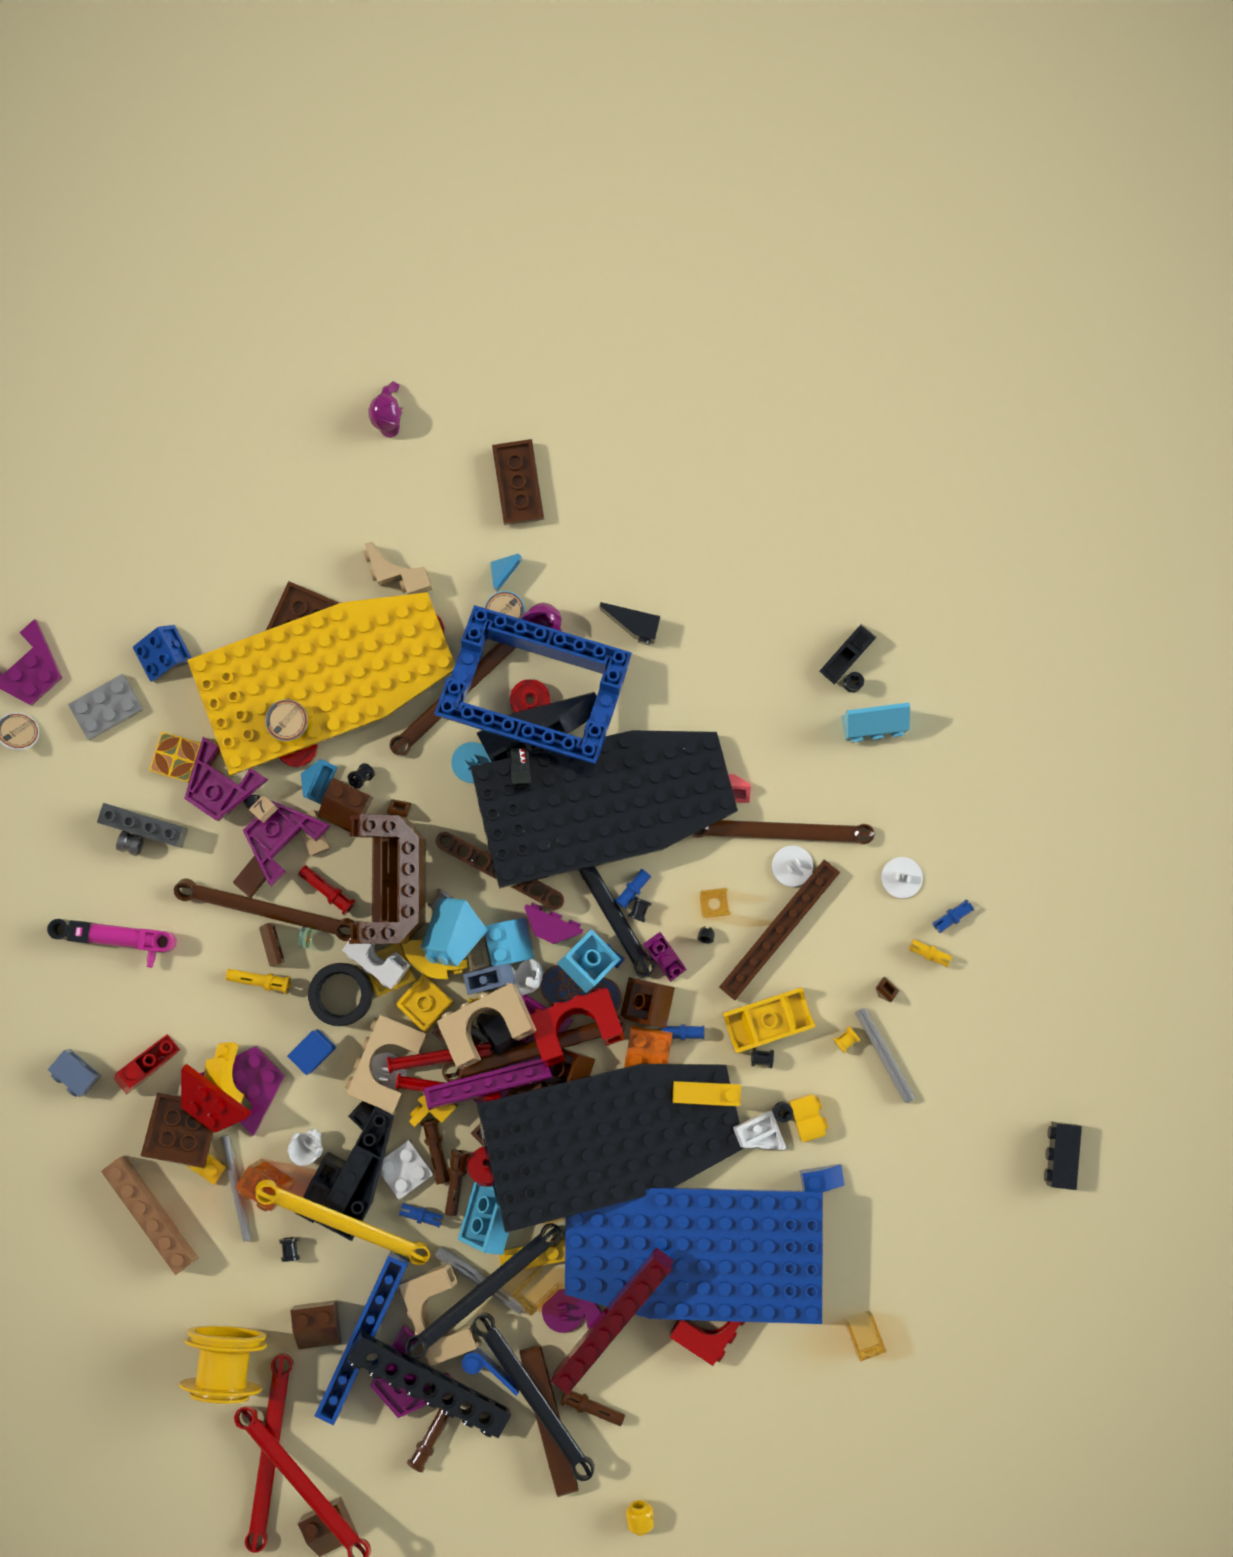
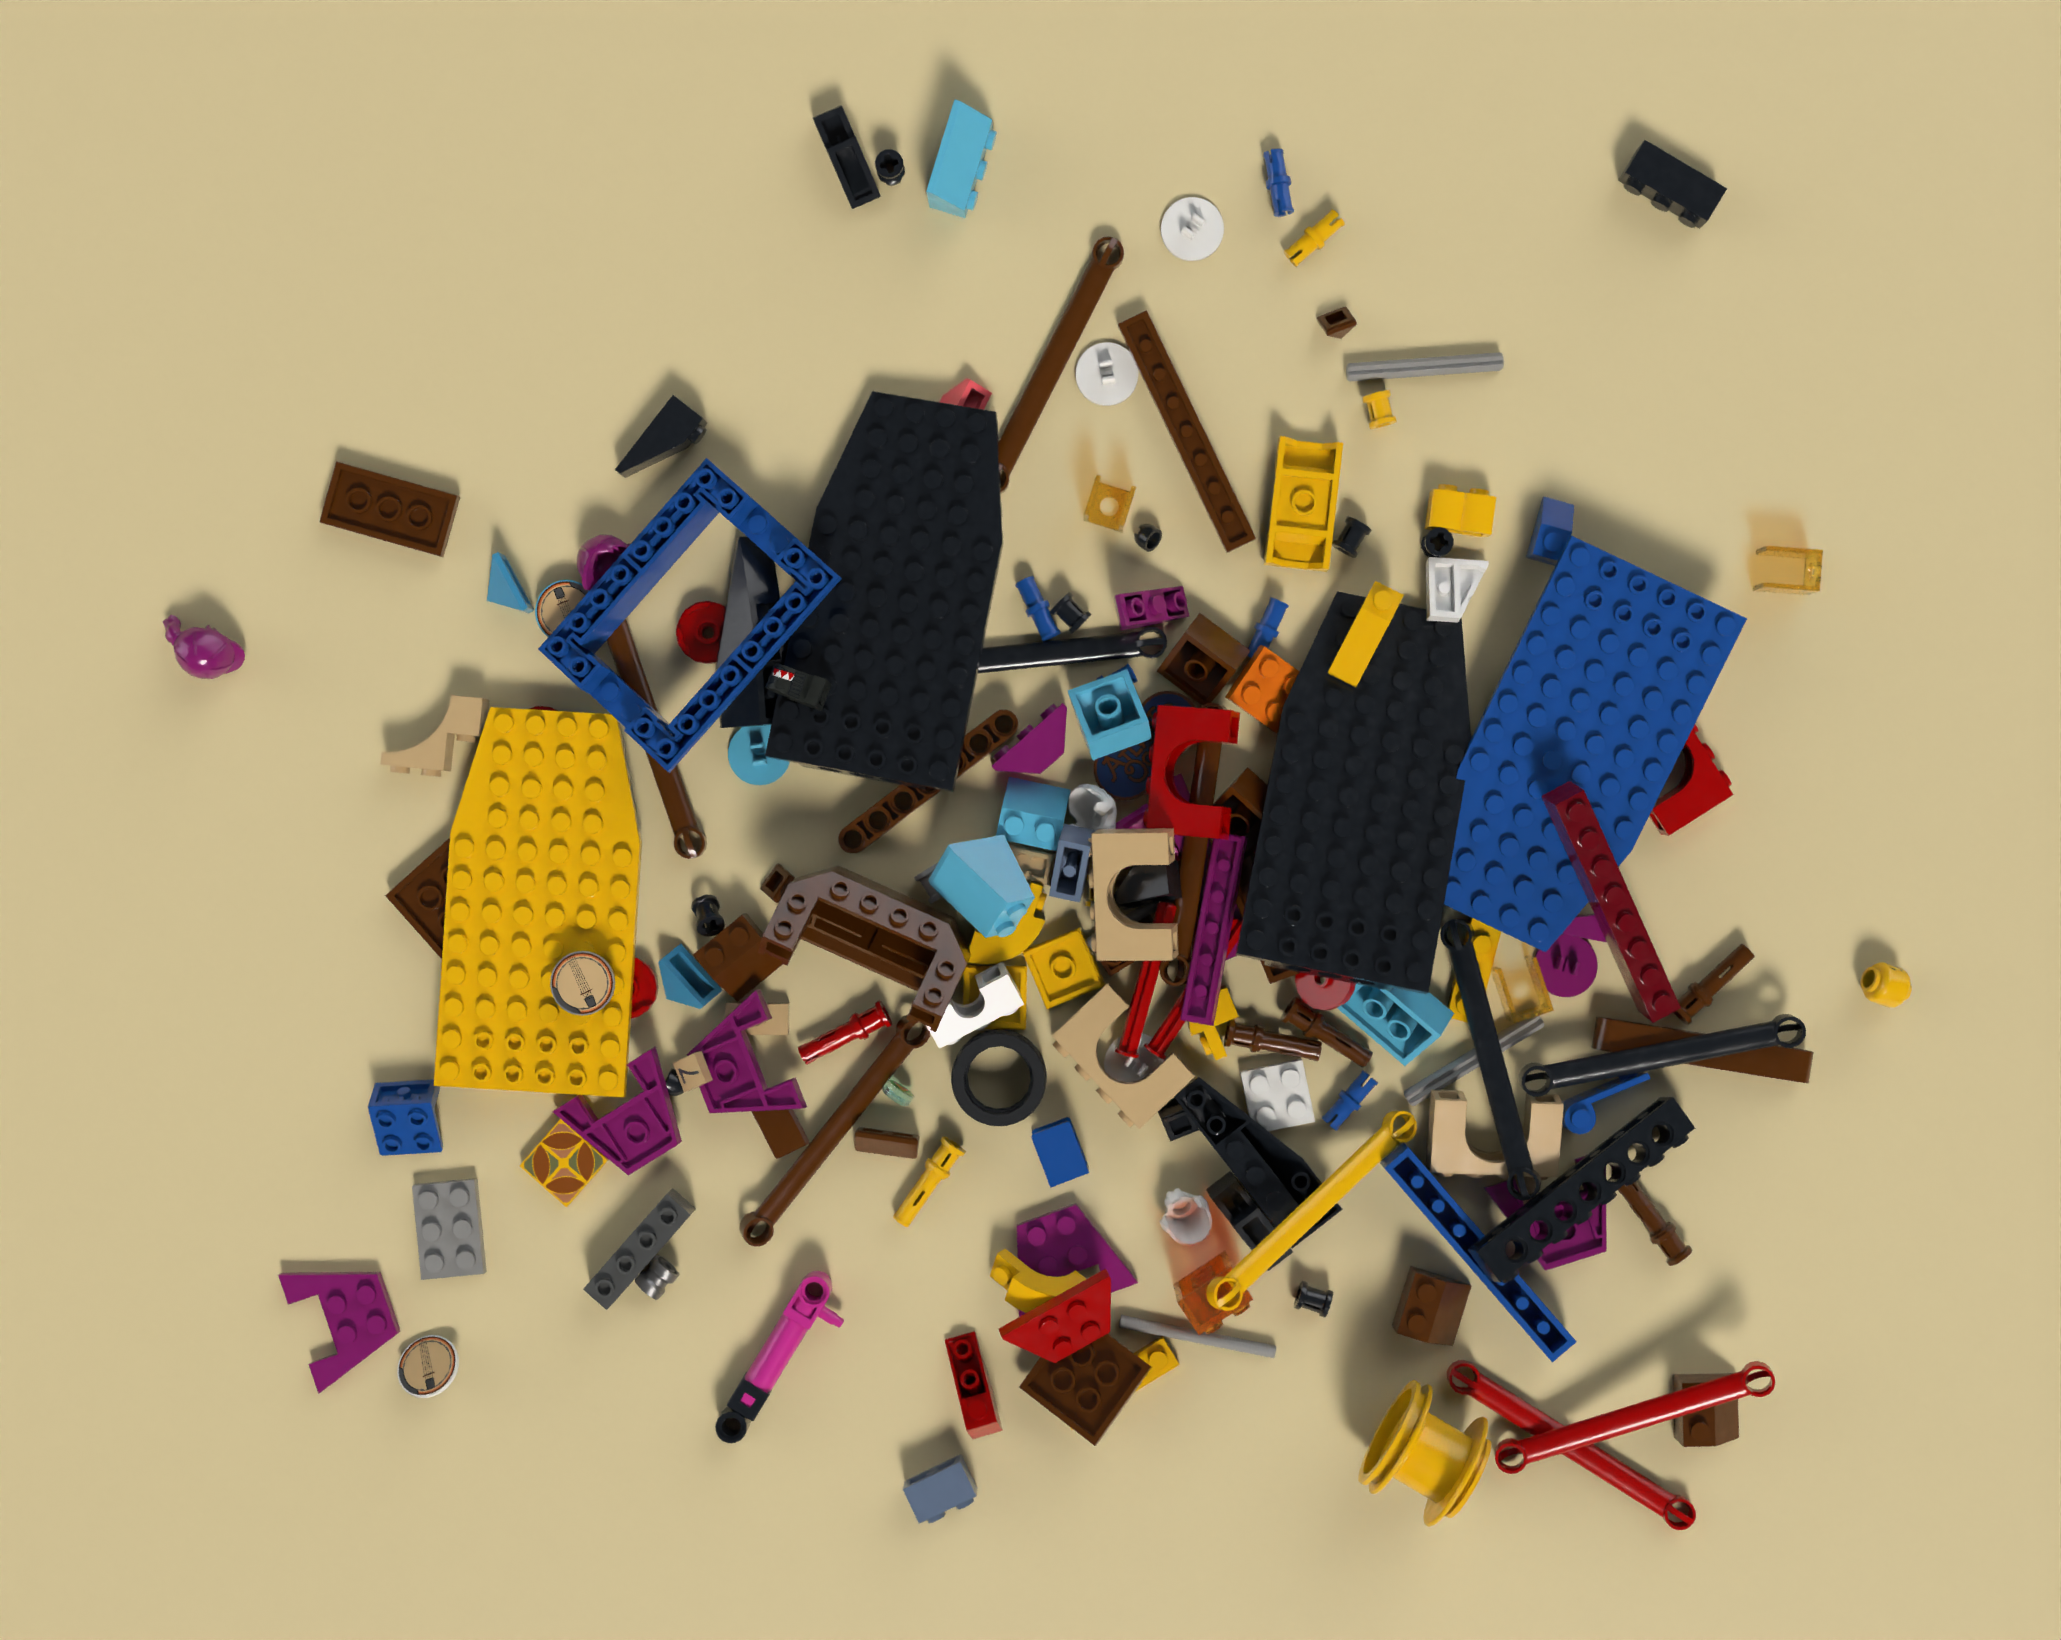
camera: 60 degrees left, 5 degrees up
(149, 1214) = (1180, 1468): medium nougat brick -> none

